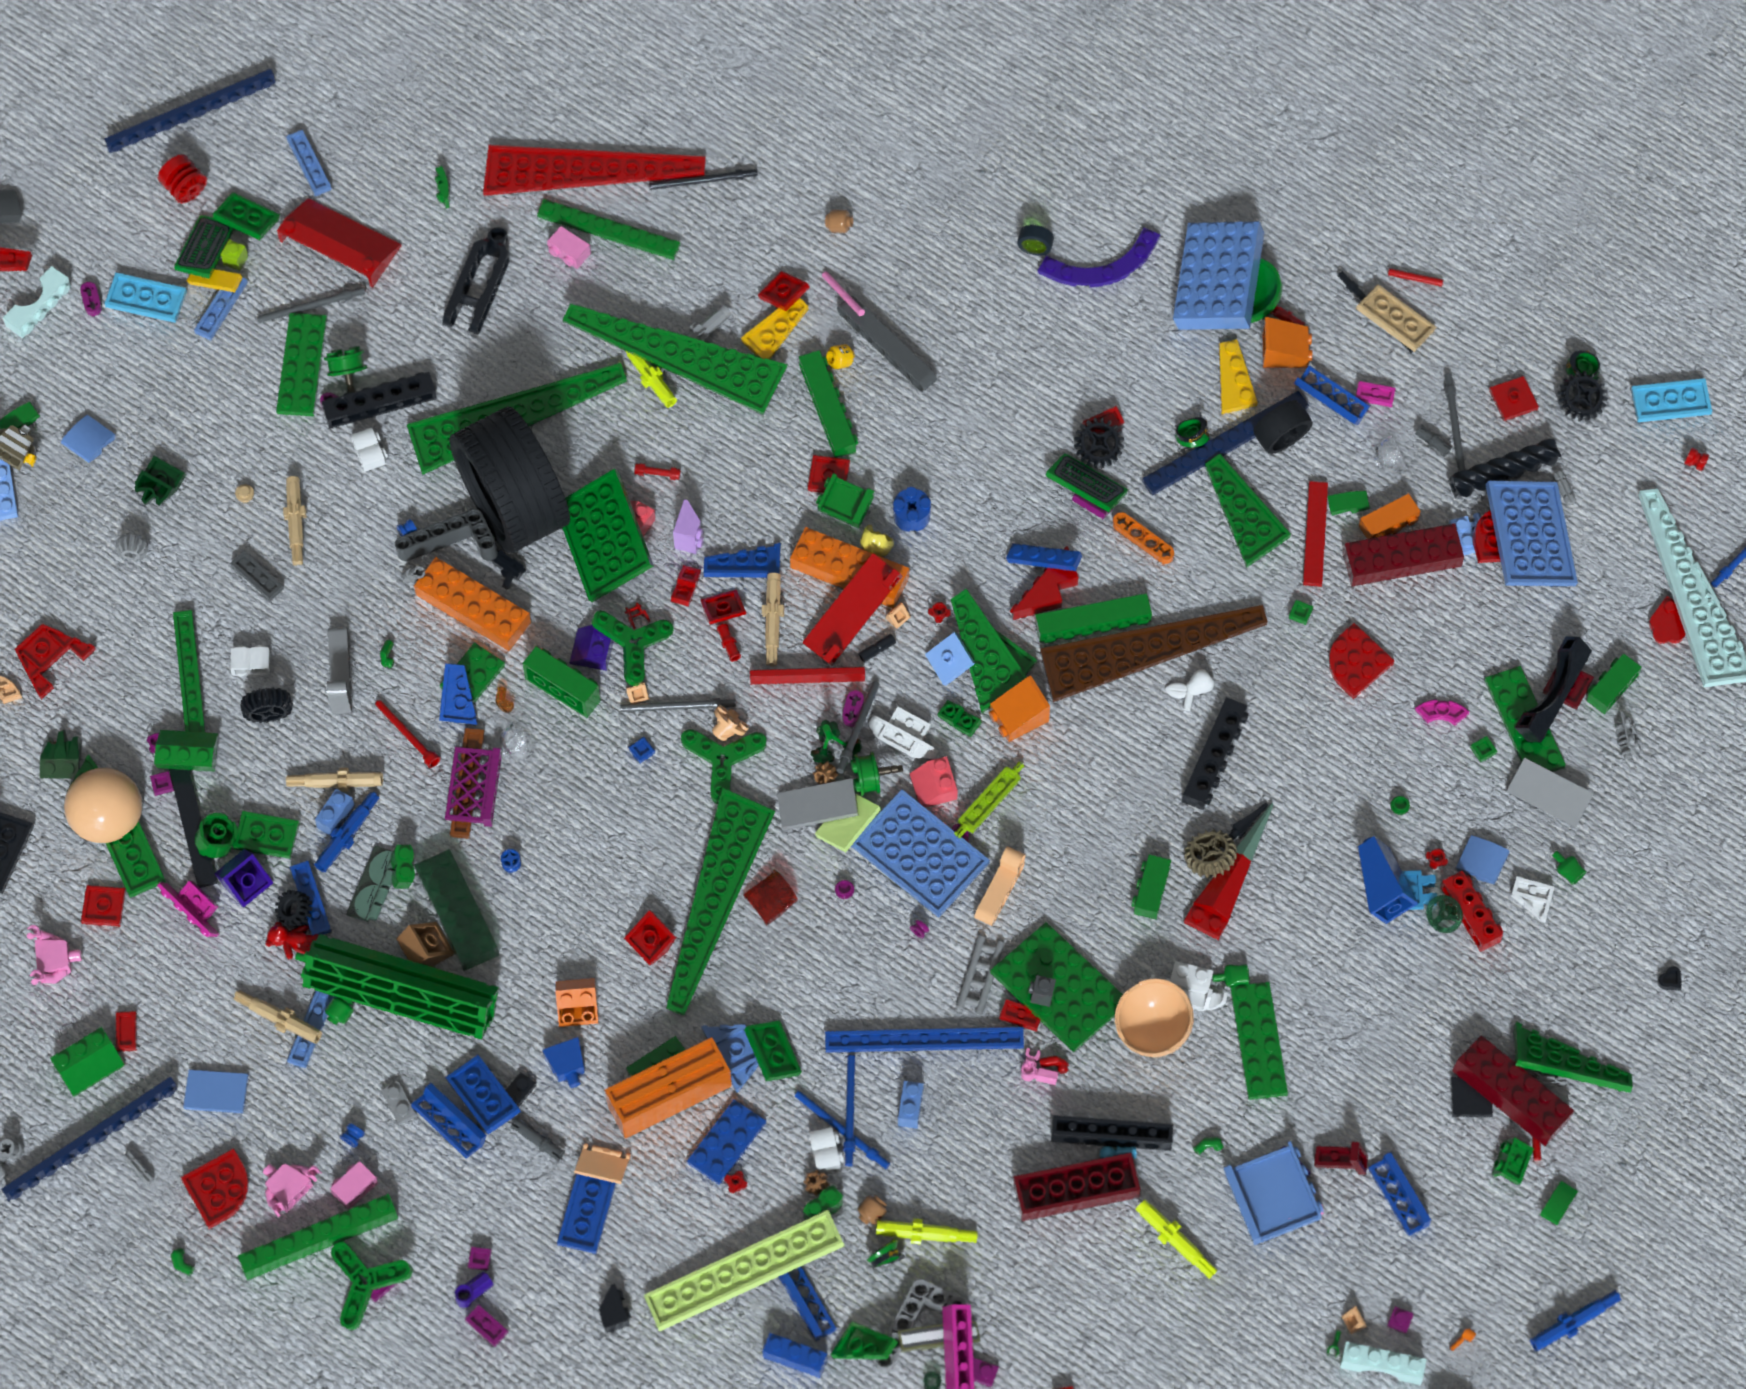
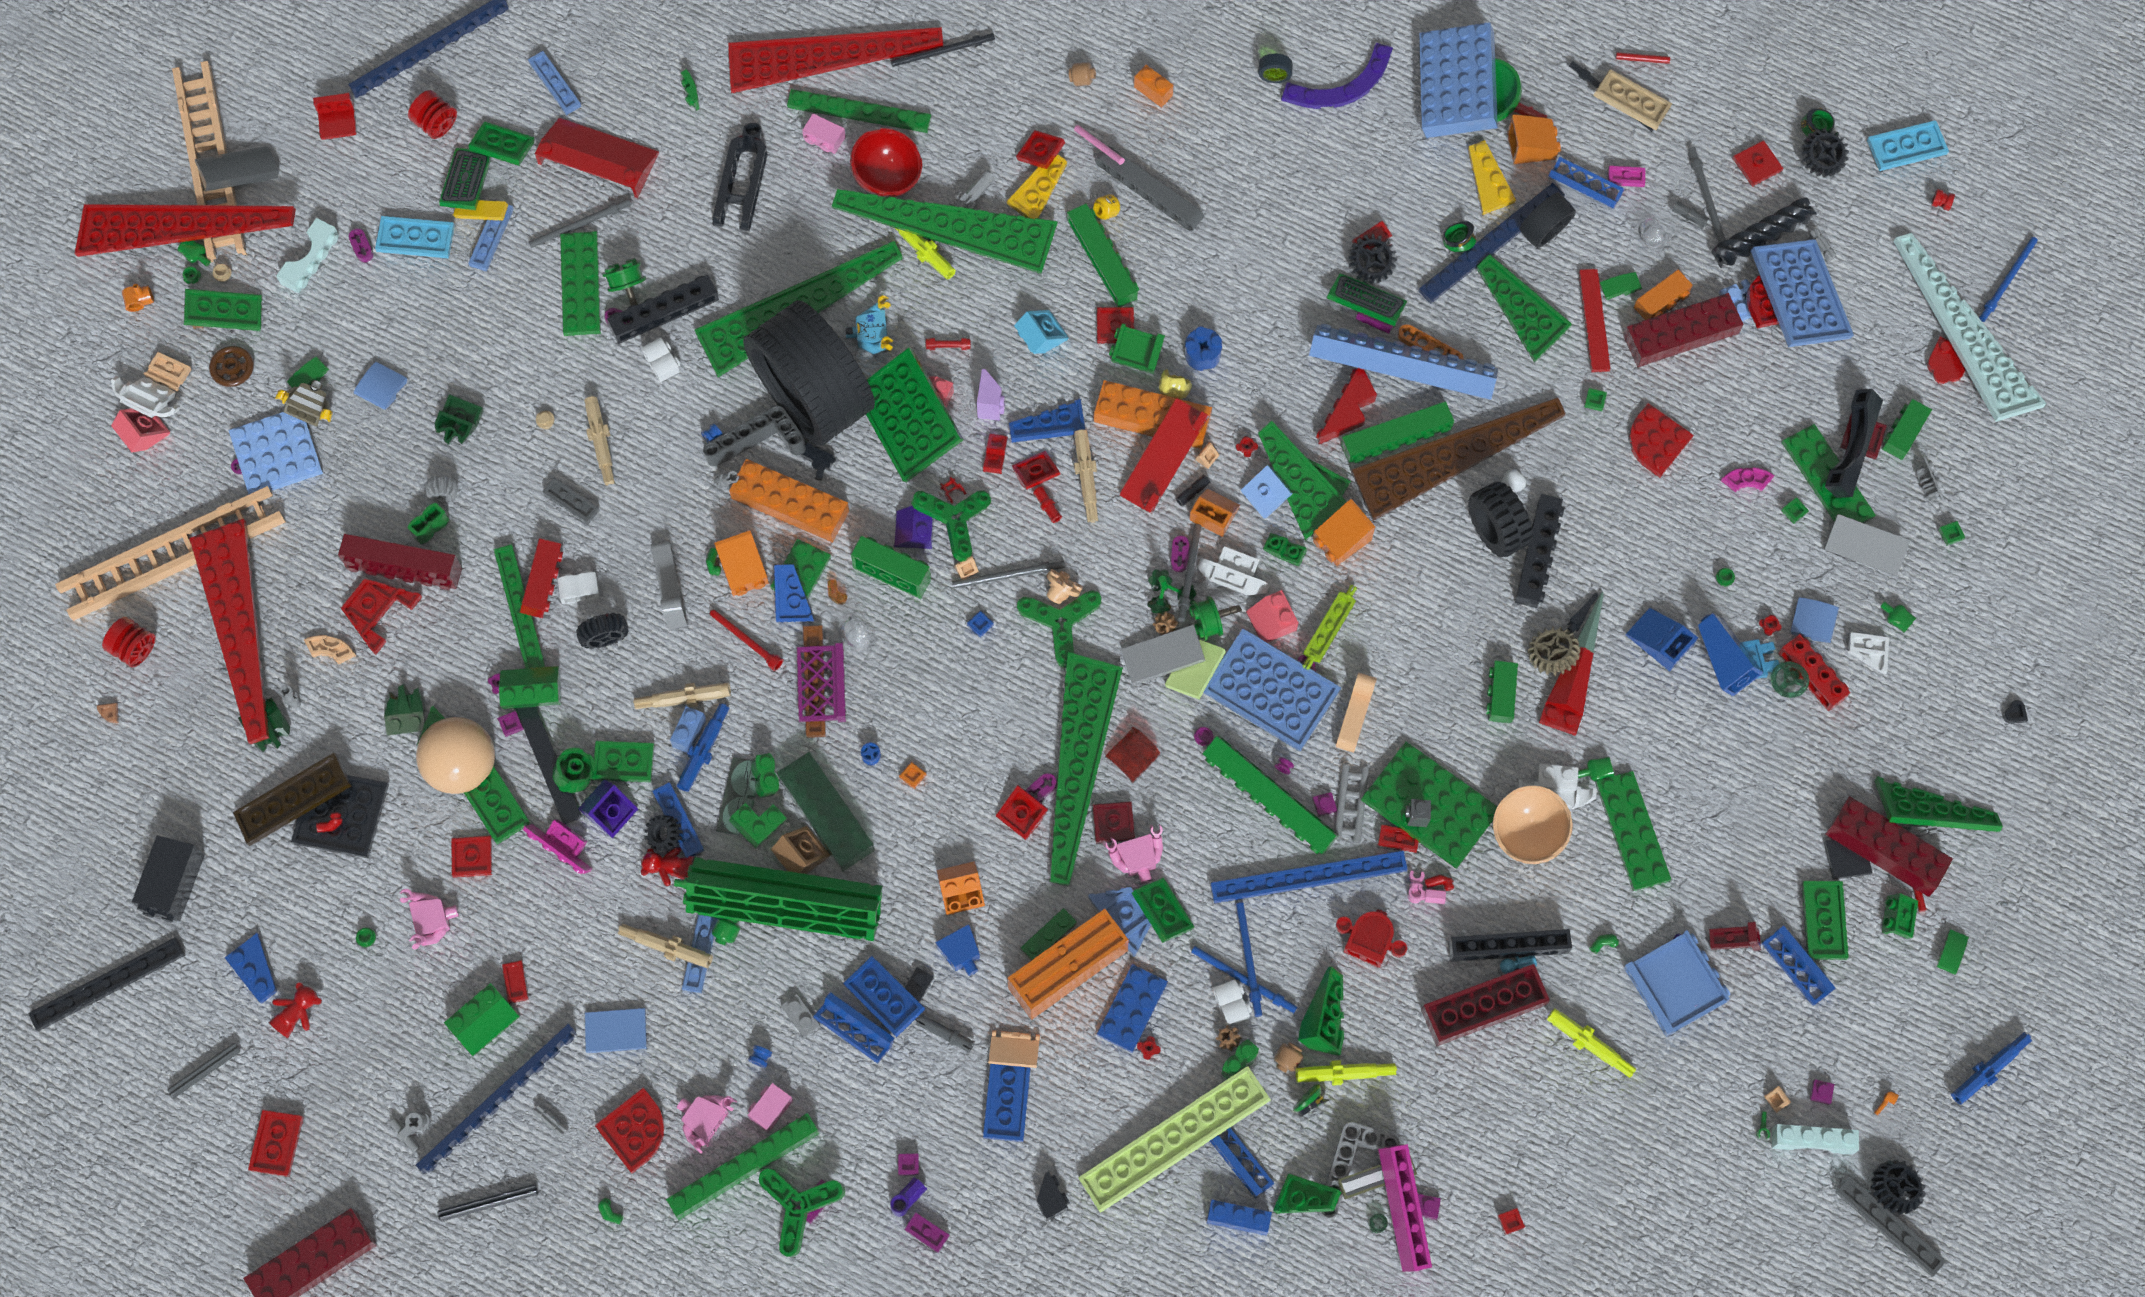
camera: 10 degrees left, 5 degrees up
(65, 1236) = (487, 1202): none -> black axle
(79, 612) = (400, 562): none -> dark red brick
(86, 168) = (335, 116): none -> red bracket
(109, 580) = (431, 521): none -> green brick
(214, 646) = (541, 577): none -> red brick
(234, 255) = (496, 183): lime brick -> none
(384, 915) = (757, 828): none -> green brick
(414, 658) = (741, 563): none -> orange slope
(548, 887) = (912, 775): none -> orange tile
(583, 445) = (871, 328): none -> medium azure torso
(624, 284) = (885, 163): none -> red piece
(672, 913) = (1043, 793): none -> magenta beam
(739, 960) = (1113, 821): none -> dark red plate
(752, 470) = (1040, 331): none -> medium azure slope
(758, 994) = (1137, 855): none -> bright pink torso
(807, 675) = (1130, 527): red tile -> none
(893, 671) = (1214, 512): none -> orange slope
(900, 955) = (1270, 794): none -> green brick
(909, 242) = (1153, 86): none -> orange brick
(910, 1104) = (1307, 945): medium blue brick -> none
(912, 1181) = (1322, 1021): none -> green wedge
(953, 972) = (1324, 804): none -> magenta plate
(974, 1106) = (1371, 937): none -> red piece
(1044, 557) = (1340, 378): blue plate -> none
(1111, 548) = (1404, 361): none -> medium blue brick
(1177, 715) = (1500, 519): none -> black tyre
(1323, 856) = (1662, 638): none -> blue slope
(1435, 1154) = (1825, 920): none -> green plate
(1639, 793) = (1951, 533): none -> green plate

